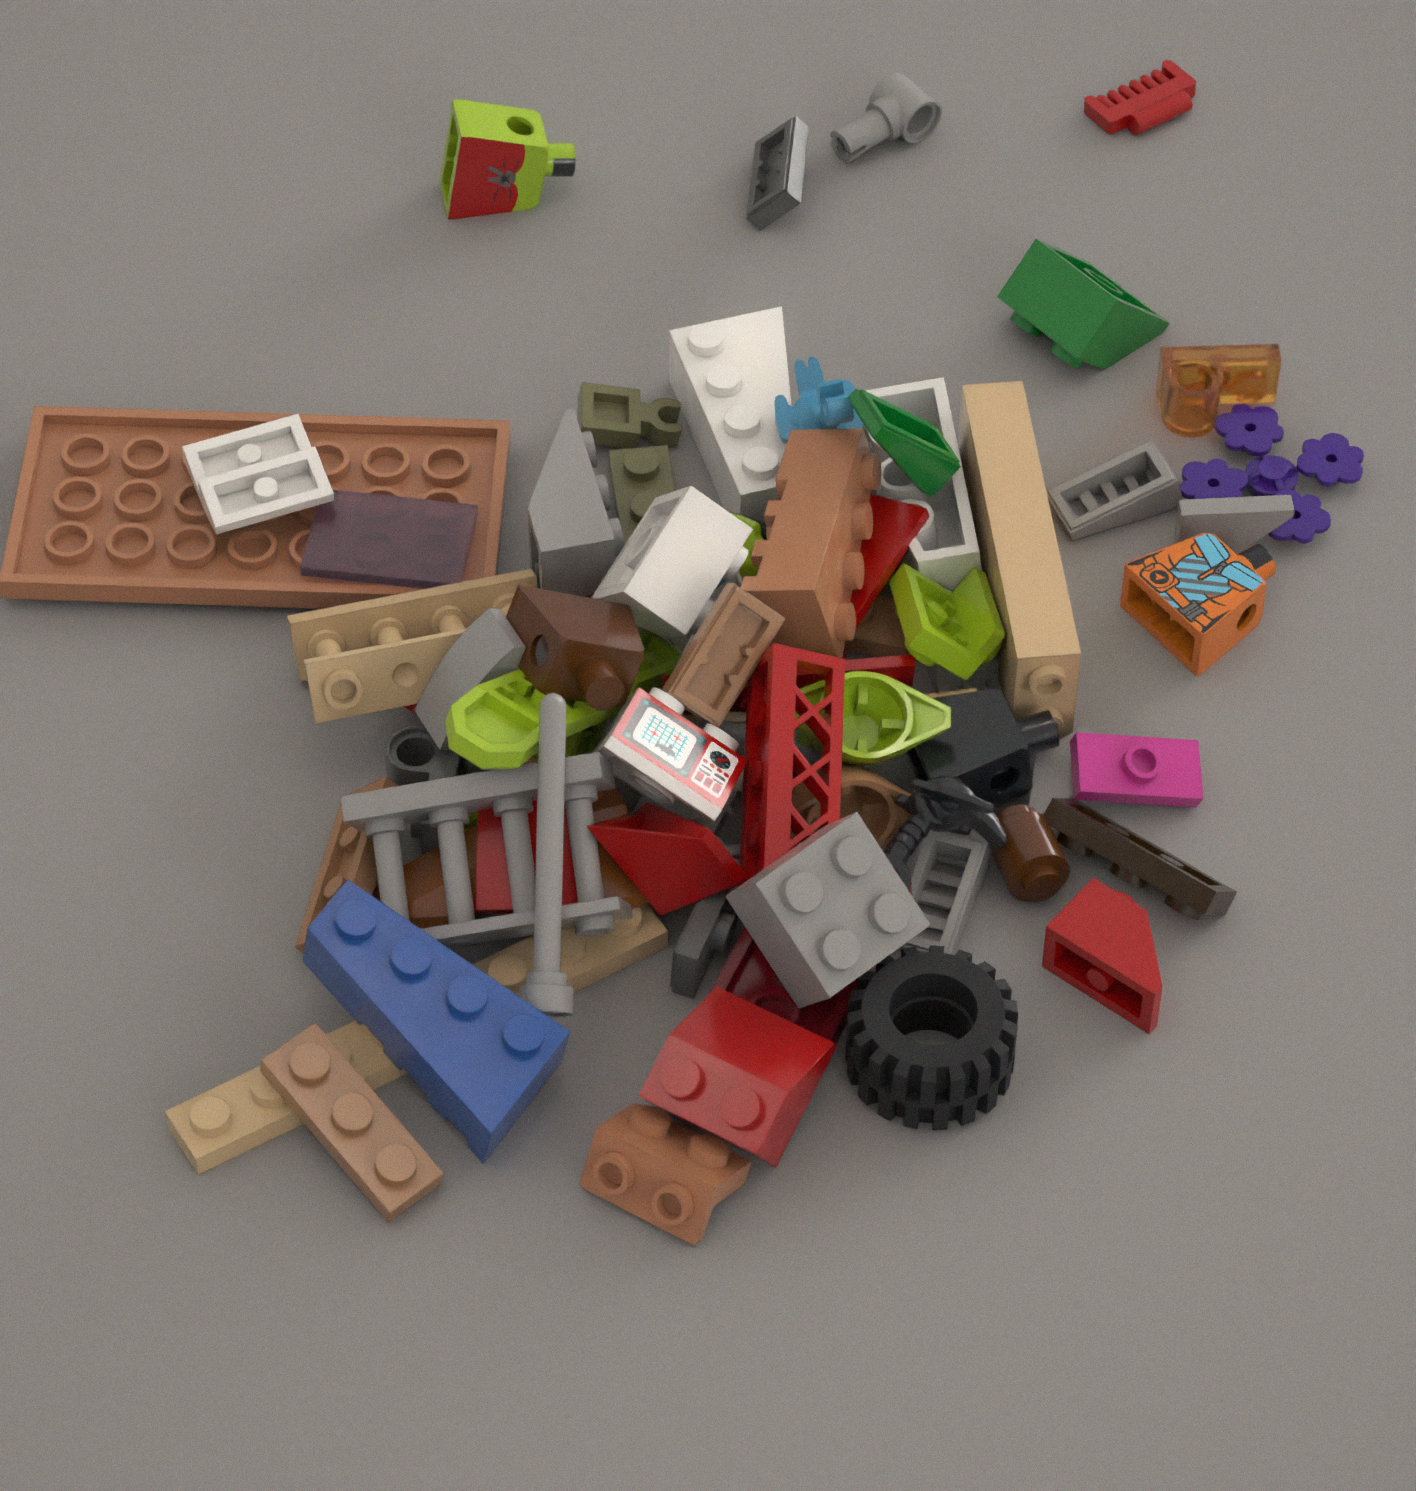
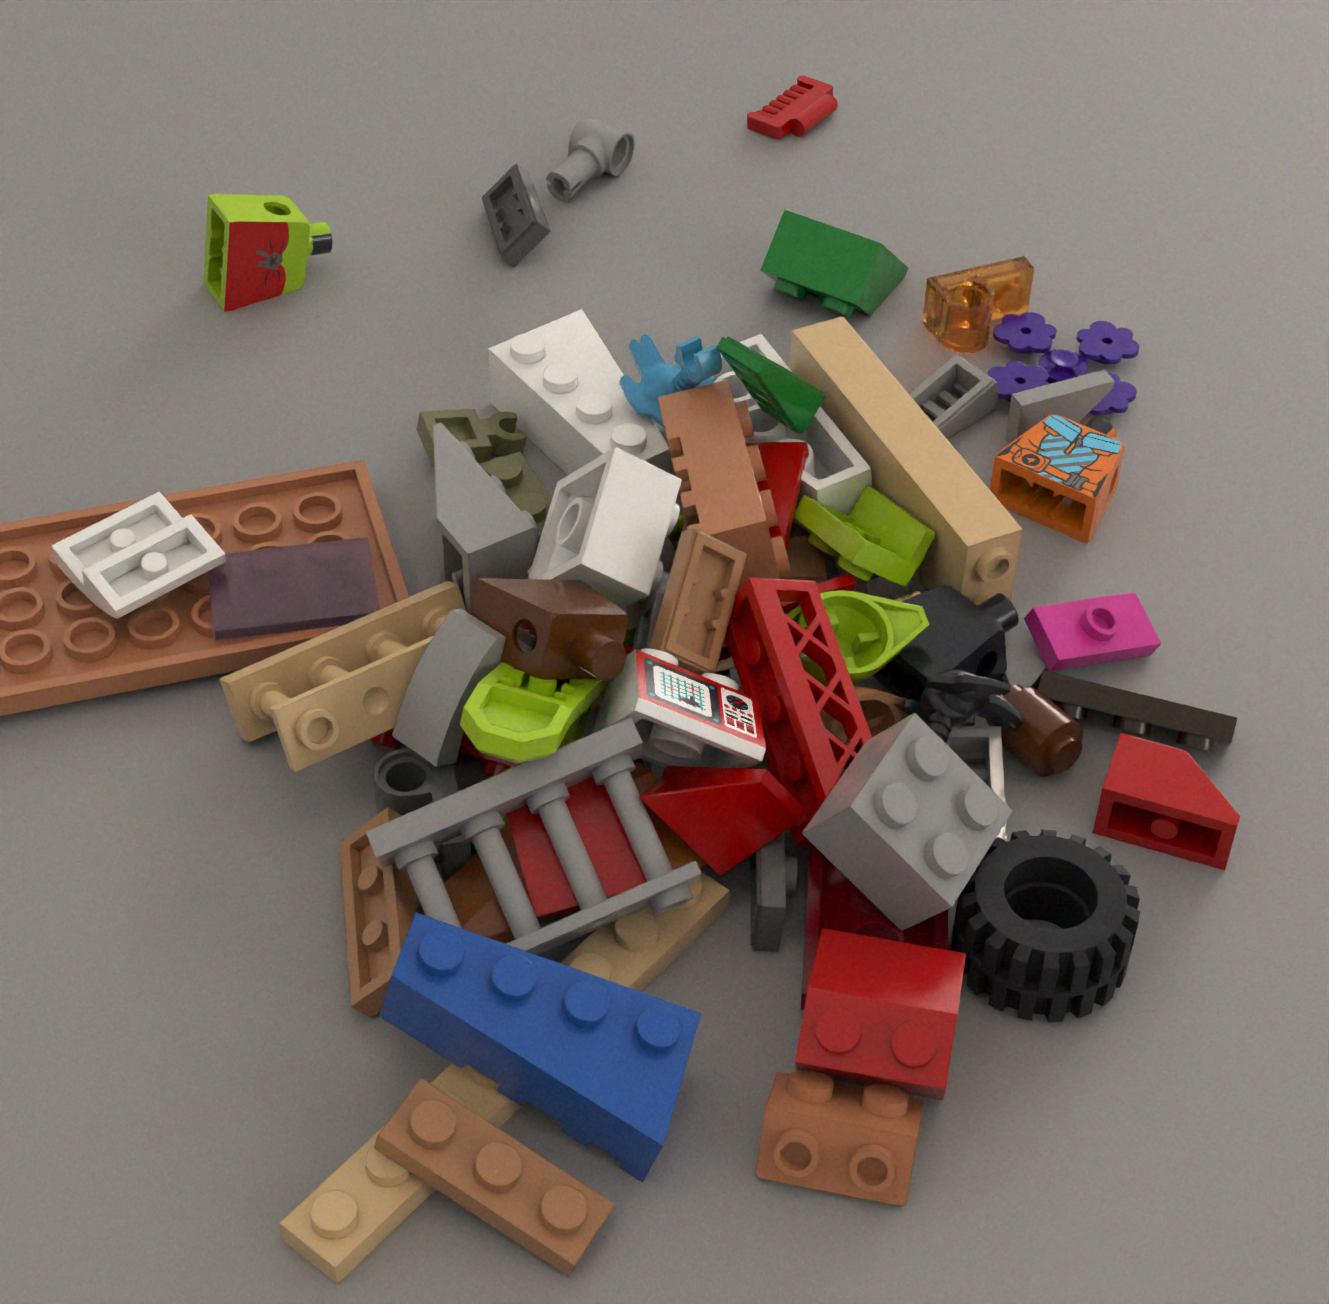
camera: 20 degrees left, 5 degrees down
(546, 985) = (649, 970): light grey piece -> none

